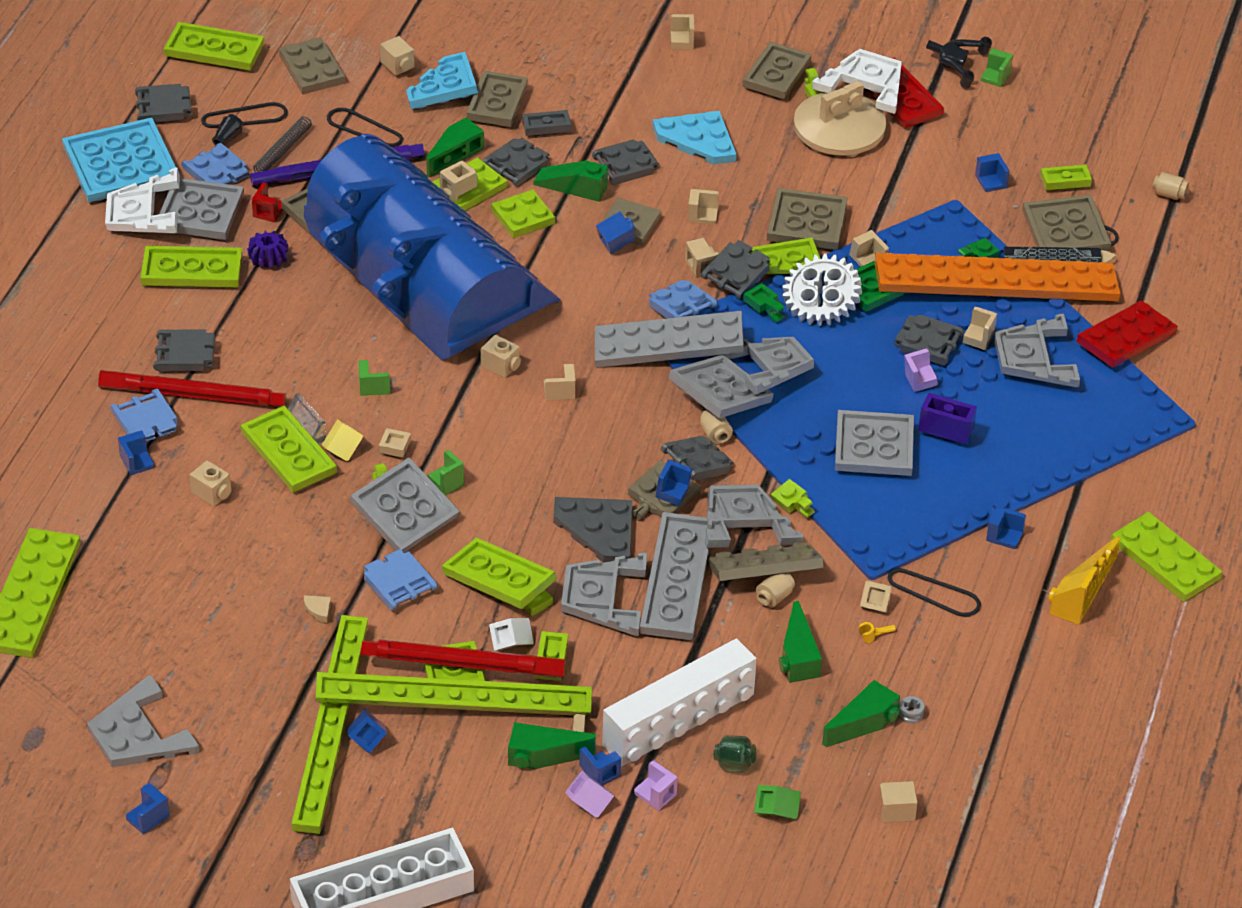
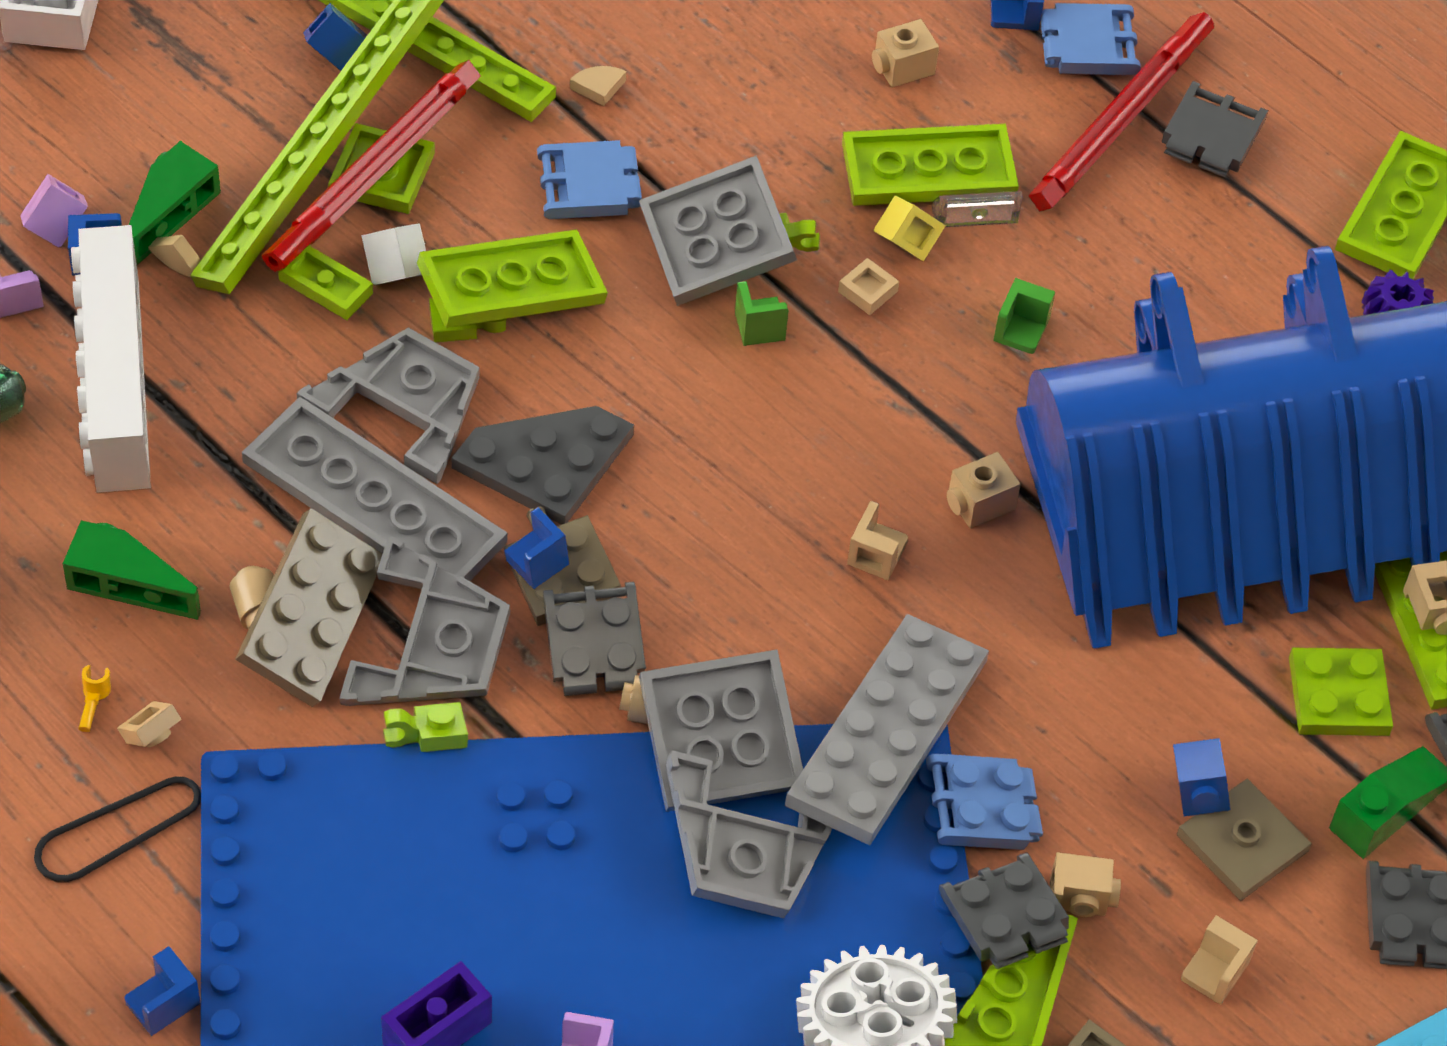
camera: 115 degrees right, 10 degrees up
(762, 299) = (910, 913): green plate -> none
(874, 442) = (467, 896): light grey plate -> none

